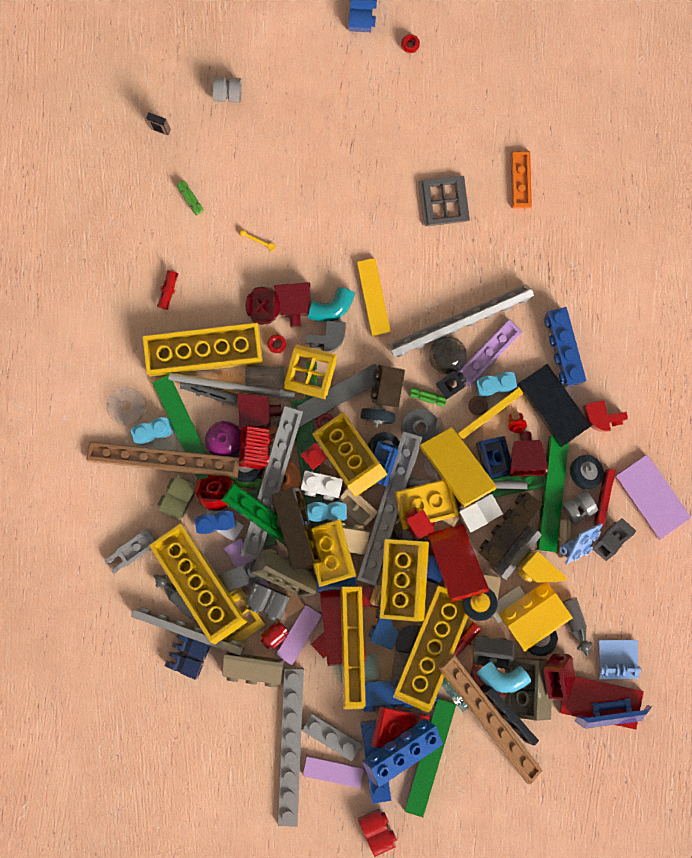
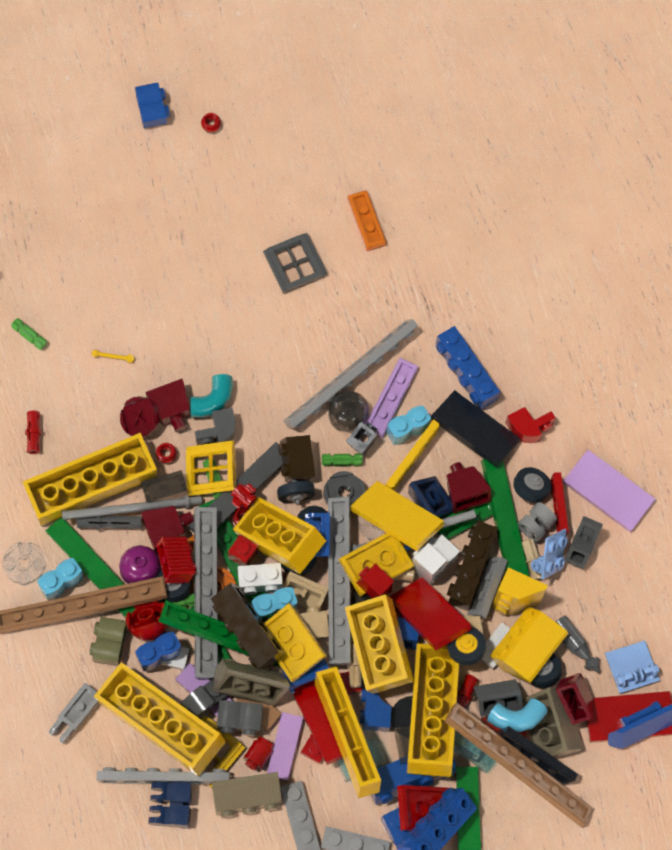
camera: 25 degrees left, 15 degrees down
(172, 593) = (139, 745): dark grey wheel -> none
(227, 89) = (37, 216): light grey wheel -> none
(330, 407) = (243, 496): none -> red gear
(373, 297) = (253, 377): yellow tile -> none
(478, 405) = (396, 453): reddish brown tile -> none
(517, 425) = (444, 459): red plate -> none

